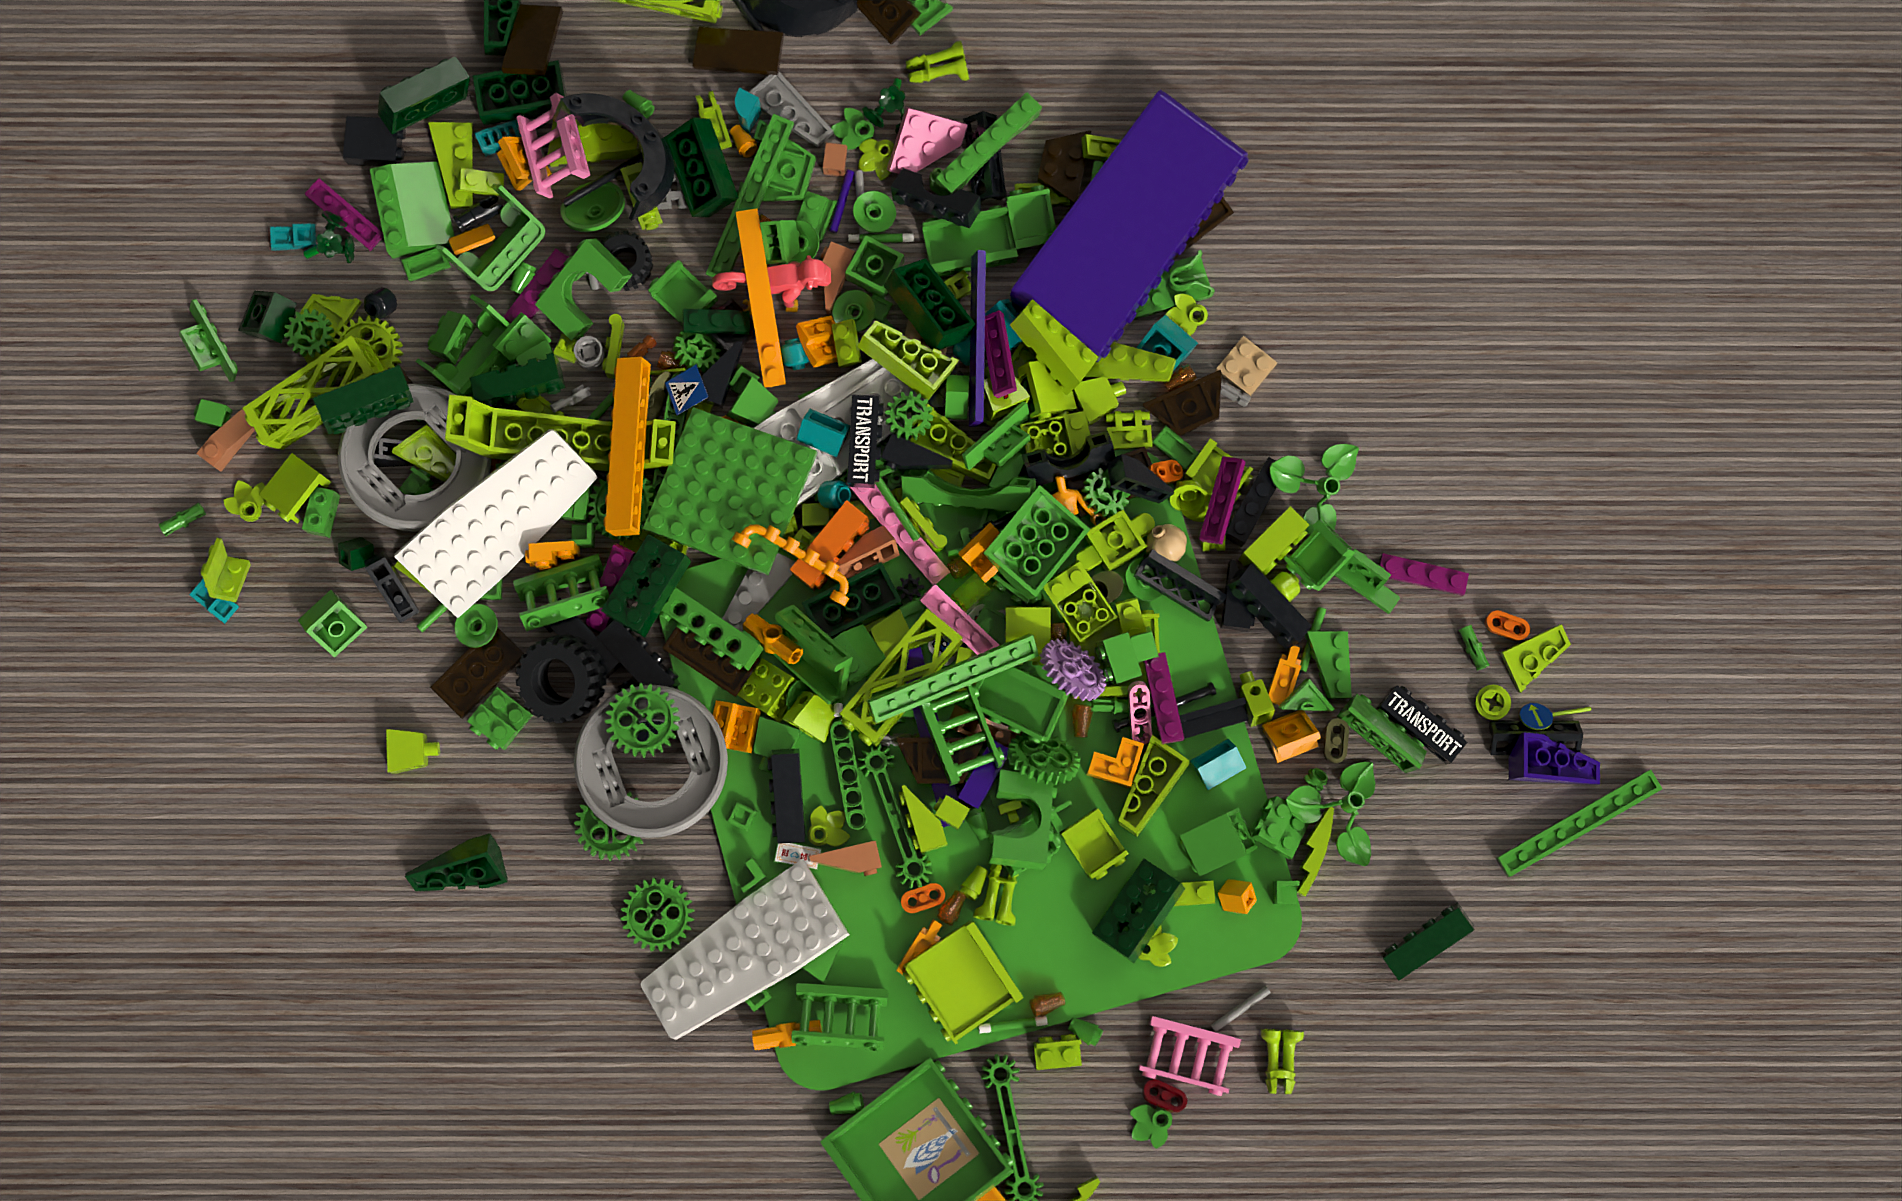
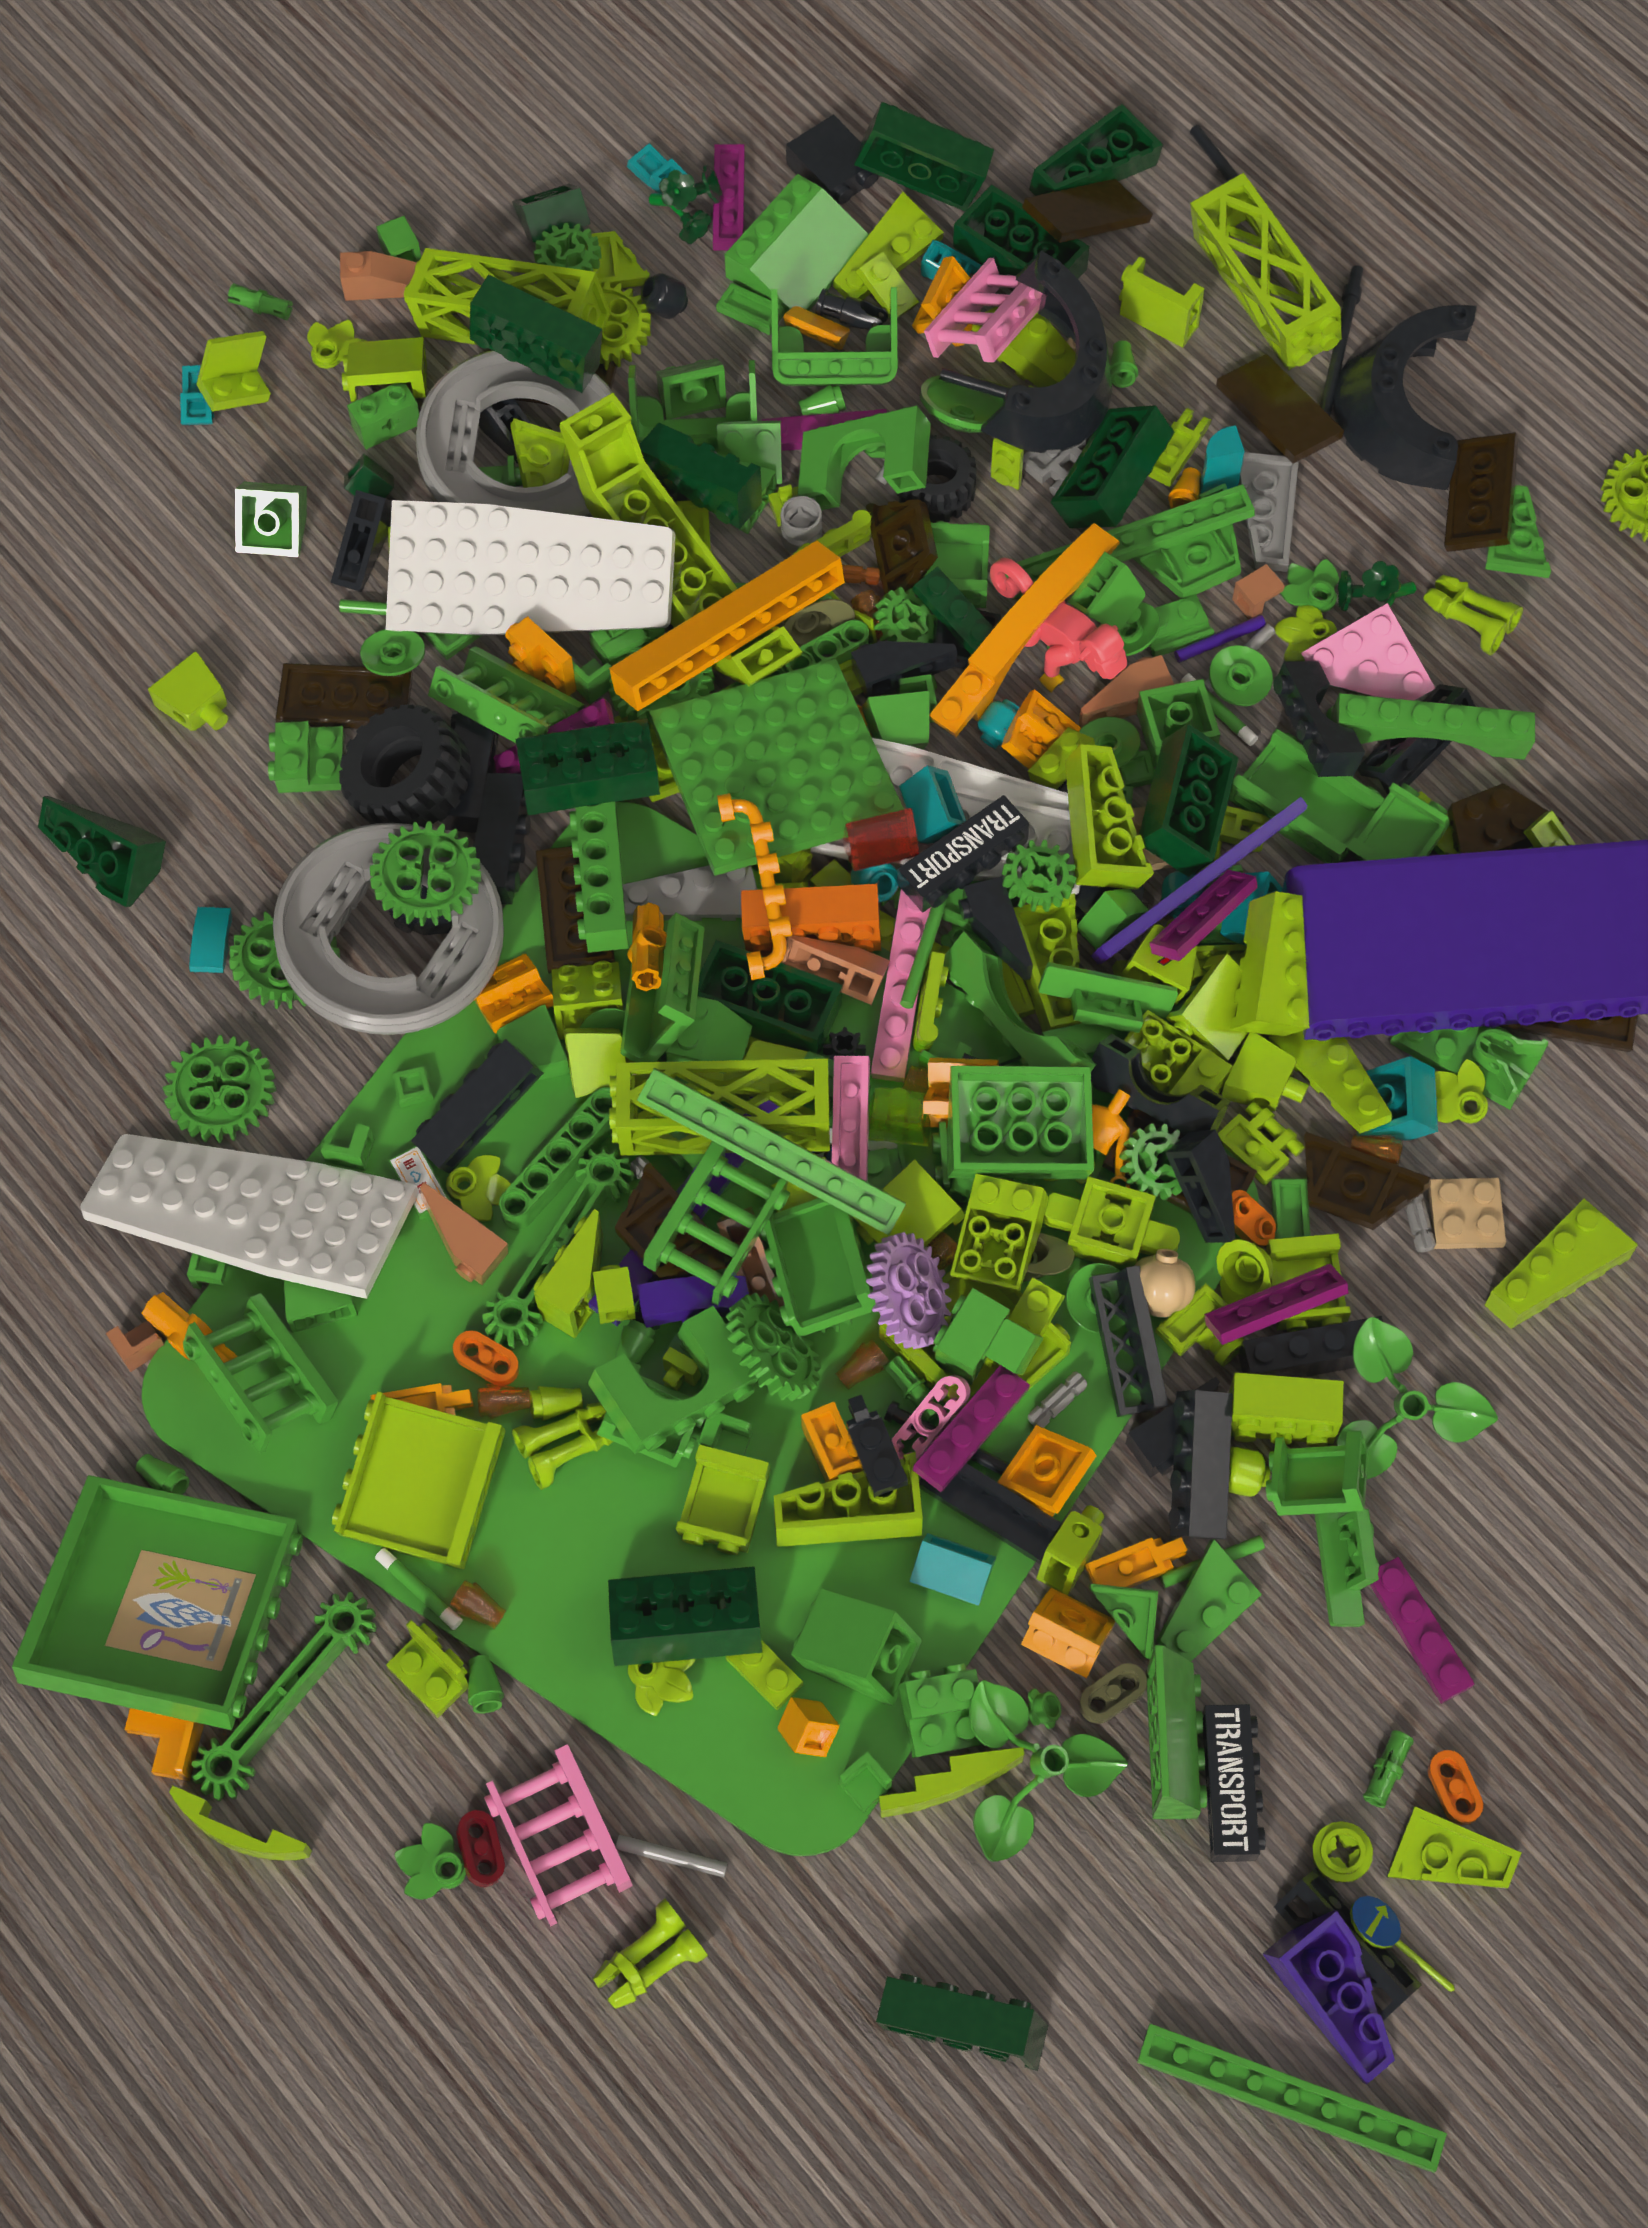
camera: 55 degrees right, 15 degrees down
(205, 345) = (465, 179): bright green bracket -> none
(565, 853) = (209, 939): none -> teal slope
(578, 394) = (745, 553): light grey plate -> none
(623, 58) = (1158, 306): none -> lime panel
(648, 312) = (902, 542): none -> dark brown wing
(686, 389) = (850, 640): blue sticker -> none
(764, 1063) = (137, 1345): none -> nougat panel
(824, 477) = (881, 839): none -> clear red slope
(1136, 753) = (874, 1449): none -> black hinge
(1177, 643) = (1057, 1400): none -> light grey axle
(1194, 548) = (1185, 1326): none -> lime tile
(1212, 680) = (1047, 1469): none -> light orange bracket
(1310, 343) = (1566, 1259): none -> lime wedge

